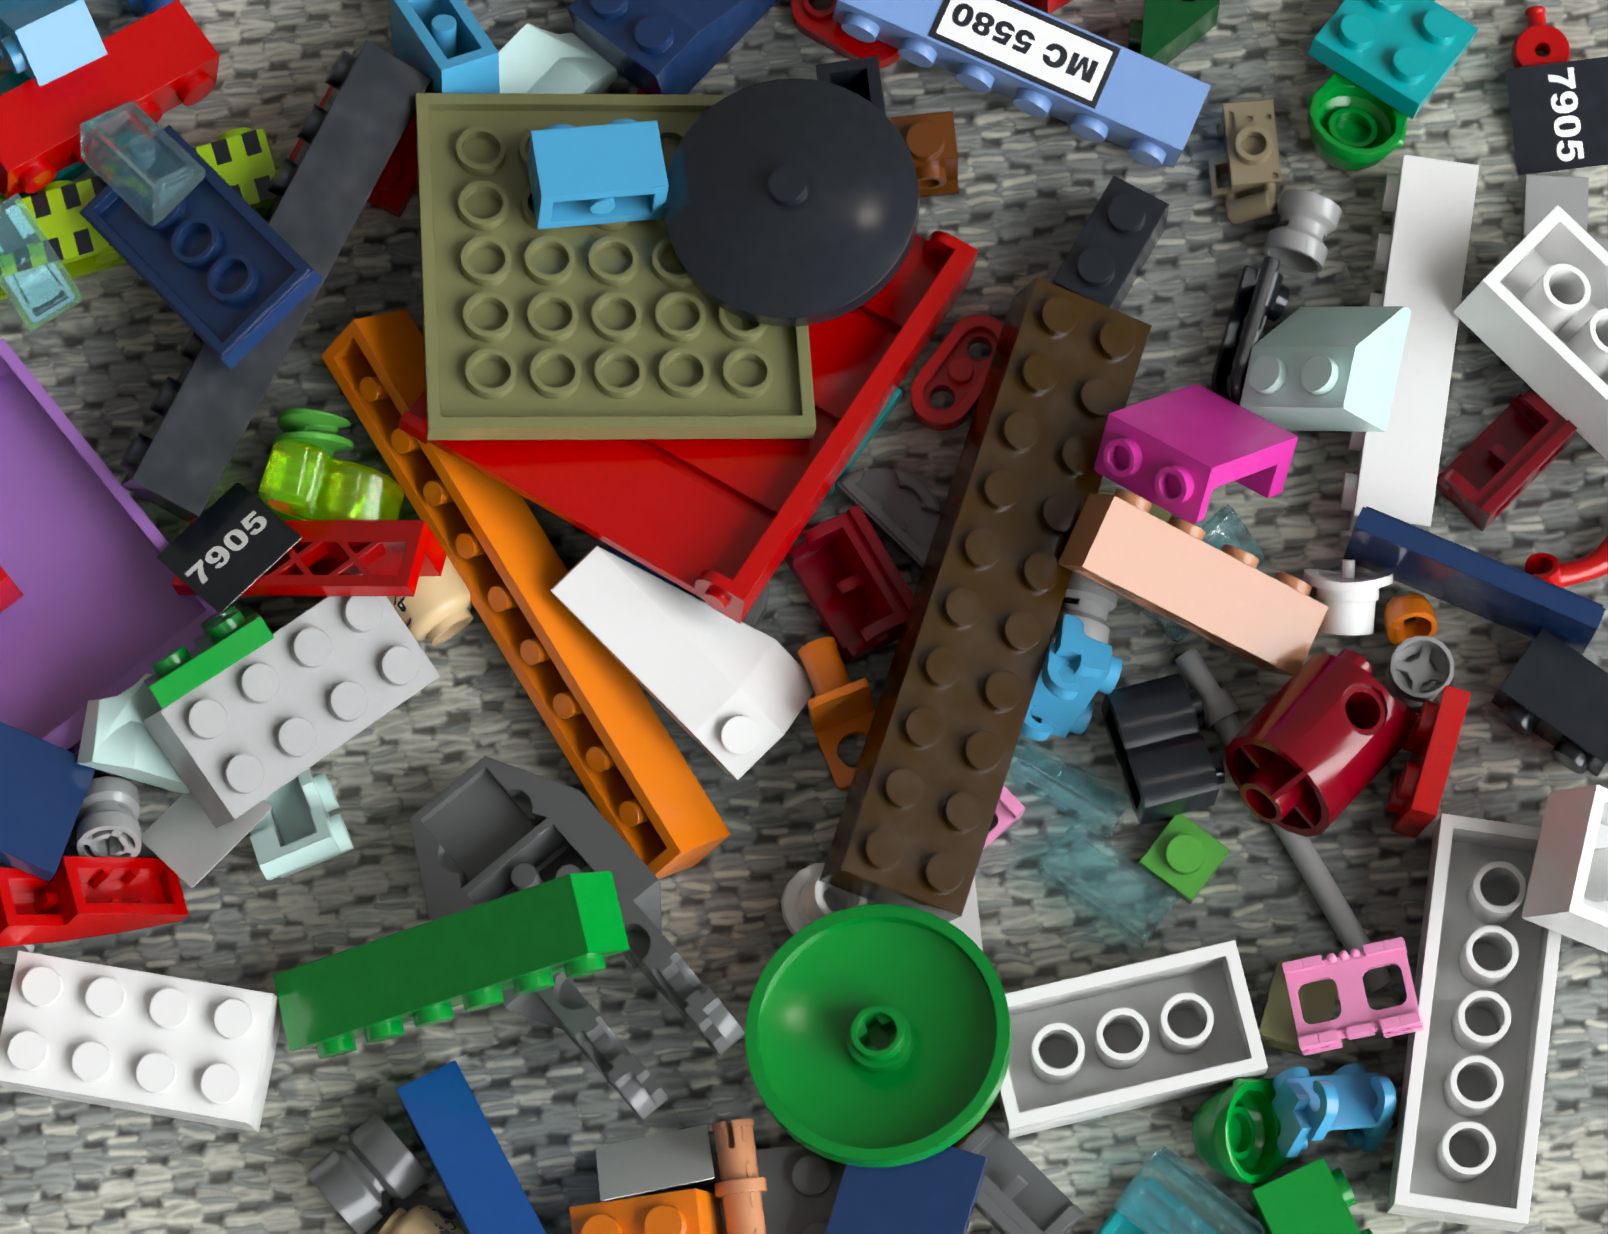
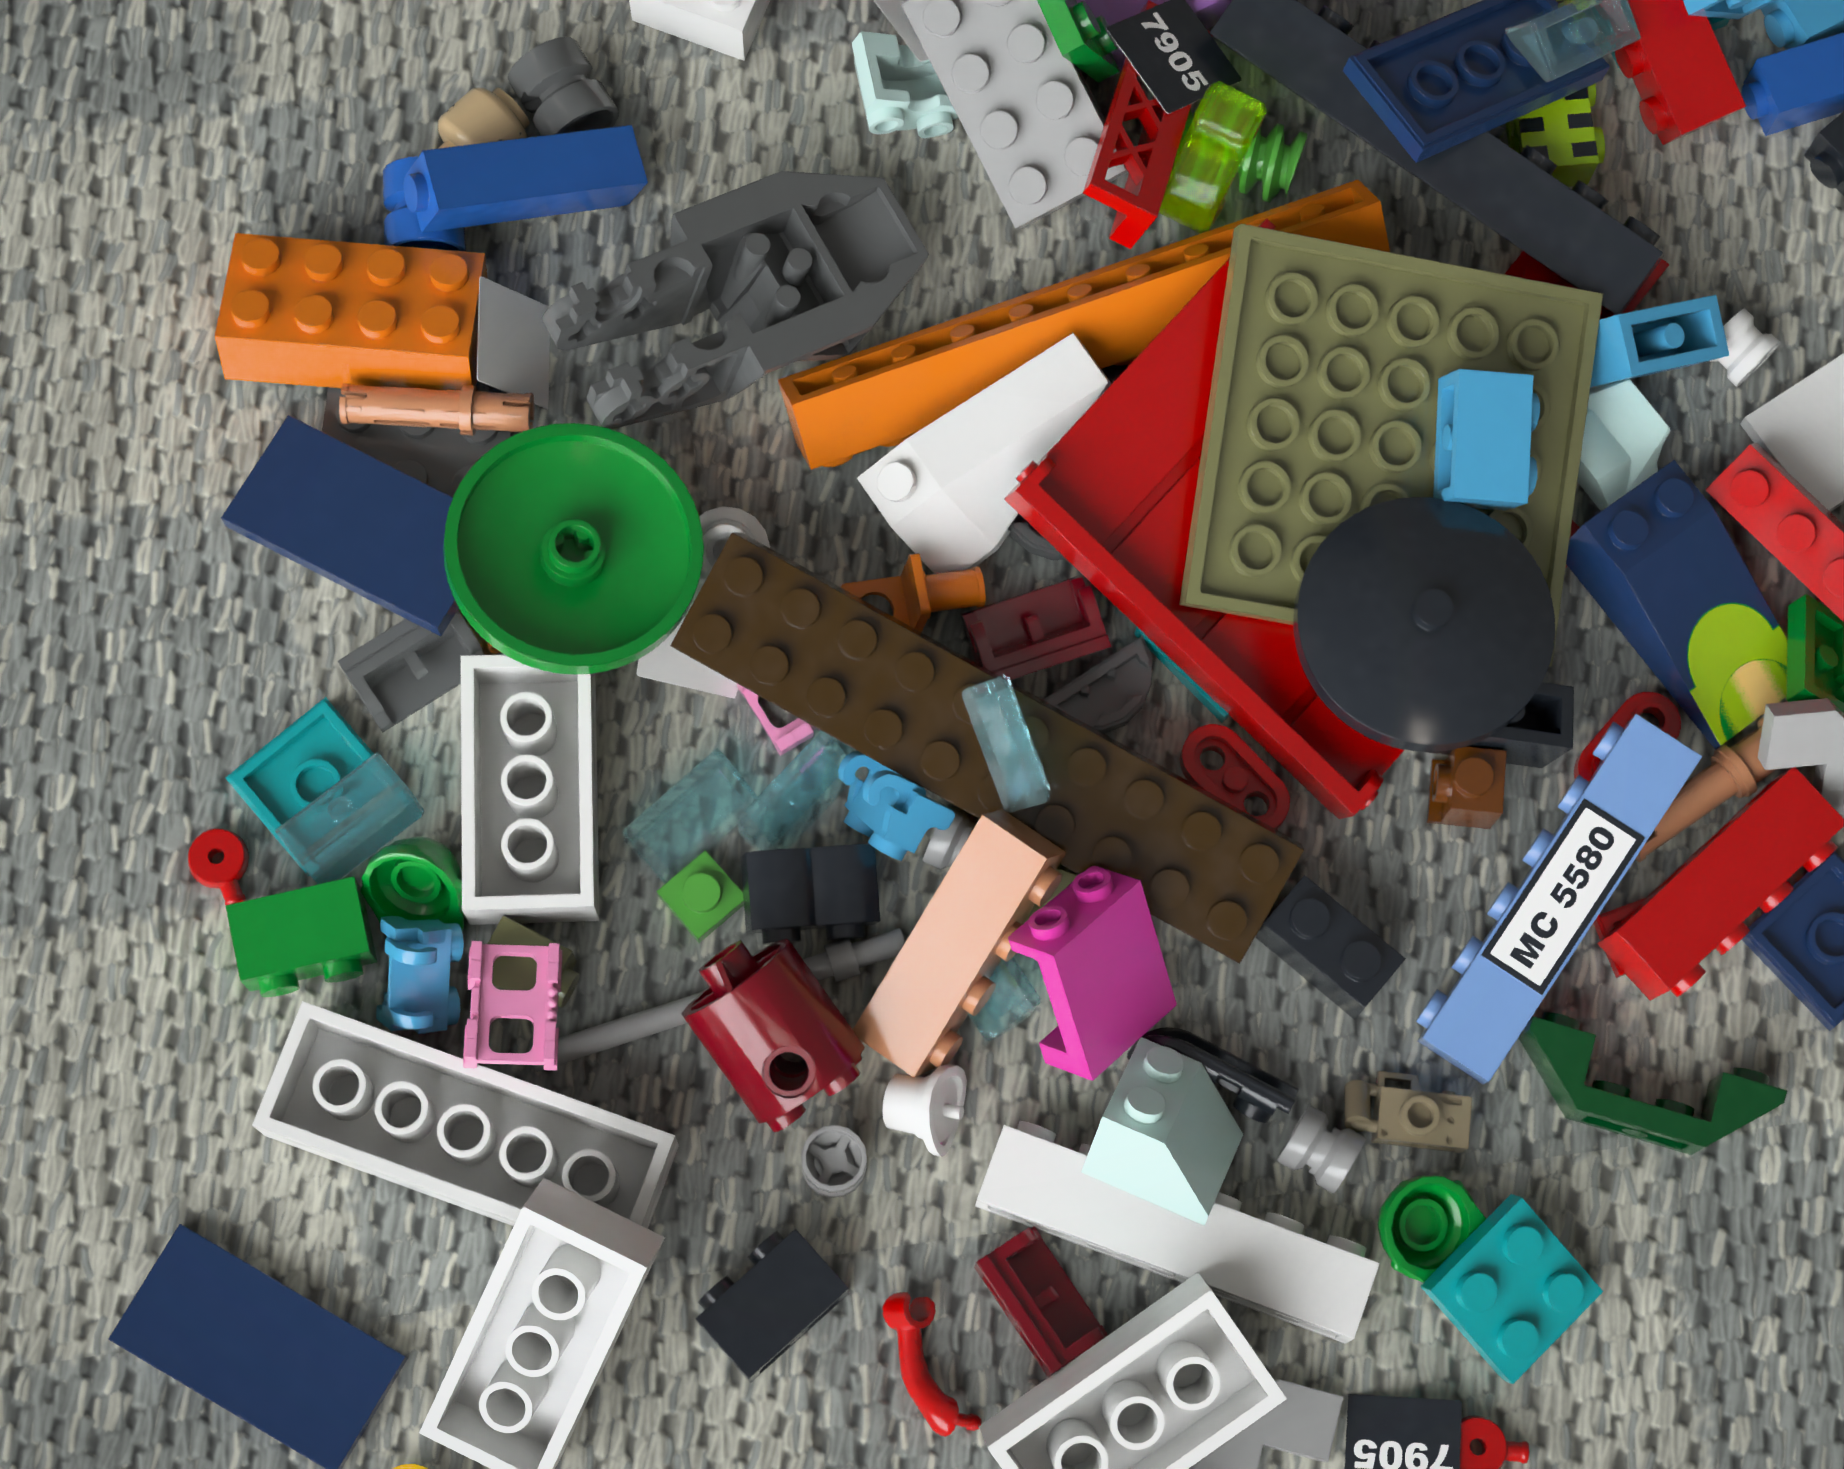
camera: 90 degrees right, 0 degrees up
(438, 606) = (1086, 242): tan head -> none
(451, 963) = (719, 173): green brick -> none
(1001, 562) = (1006, 744): none -> clear light blue slope
(1406, 607) = (894, 1167): orange hinge -> none
(1432, 740) = (713, 1125): red plate -> none
(1471, 580) = (910, 1227): dark blue tile -> none

